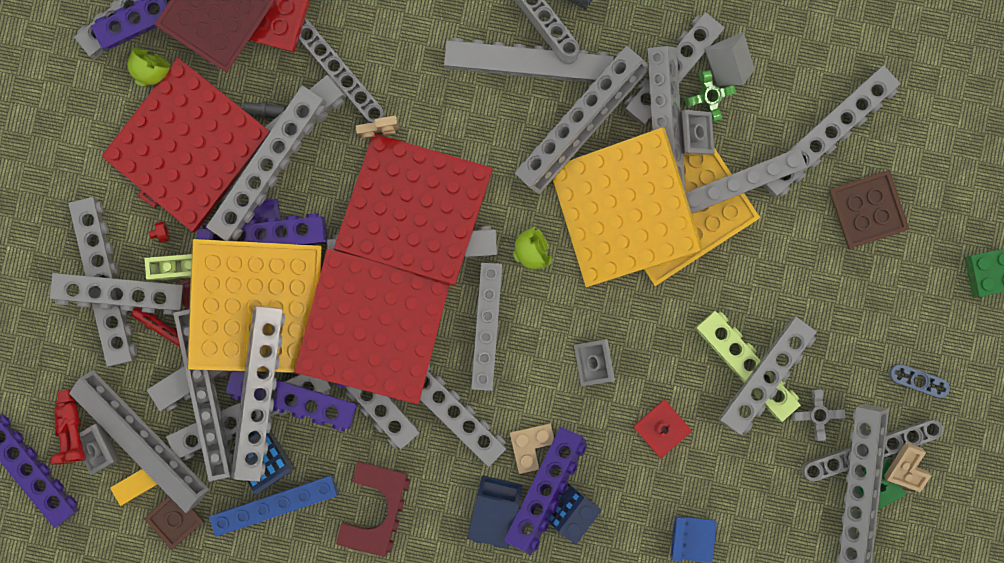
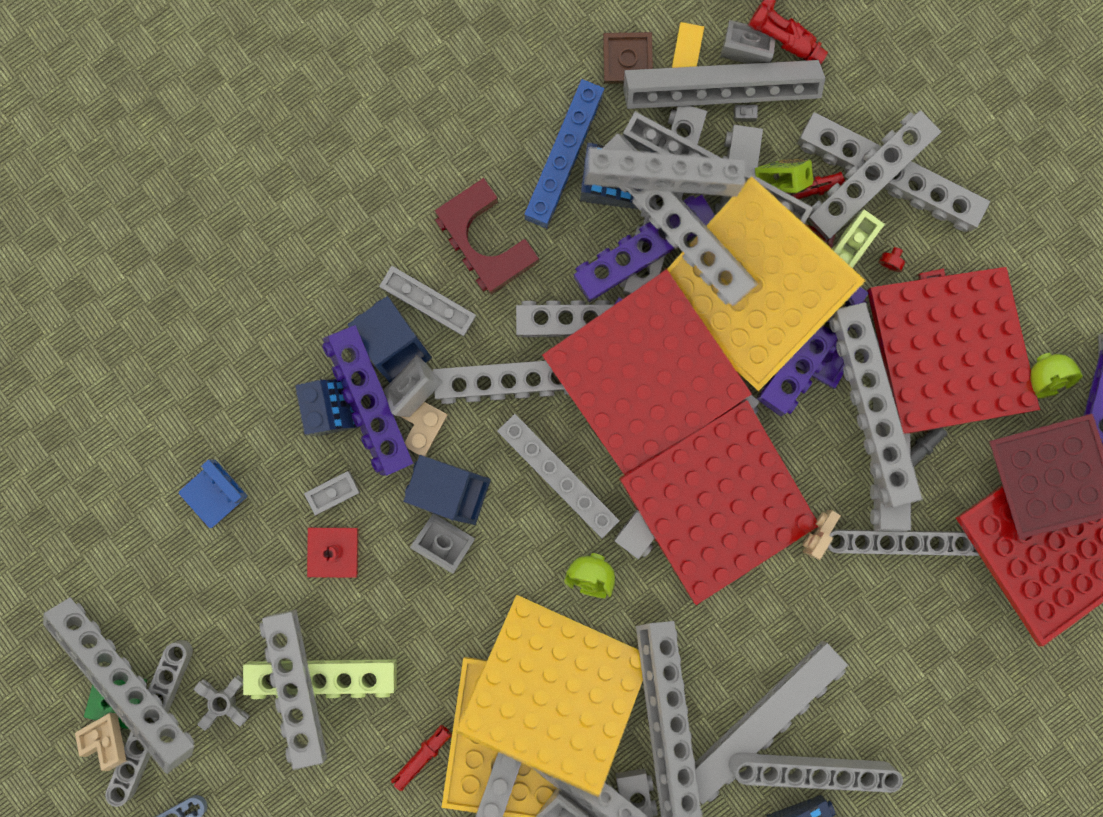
camera: 135 degrees right, 0 degrees up
(144, 410) = (745, 113): none -> flat silver piece
(159, 345) = (793, 173): none -> lime torso
(234, 426) = (664, 172): none -> light grey brick
(447, 510) = (427, 301): none -> light grey plate
(512, 470) = (411, 388): none -> light grey slope
(558, 390) = (446, 490): none -> dark blue slope
(625, 462) = (332, 493): none -> light grey plate
(741, 257) = (420, 759): none -> red pin

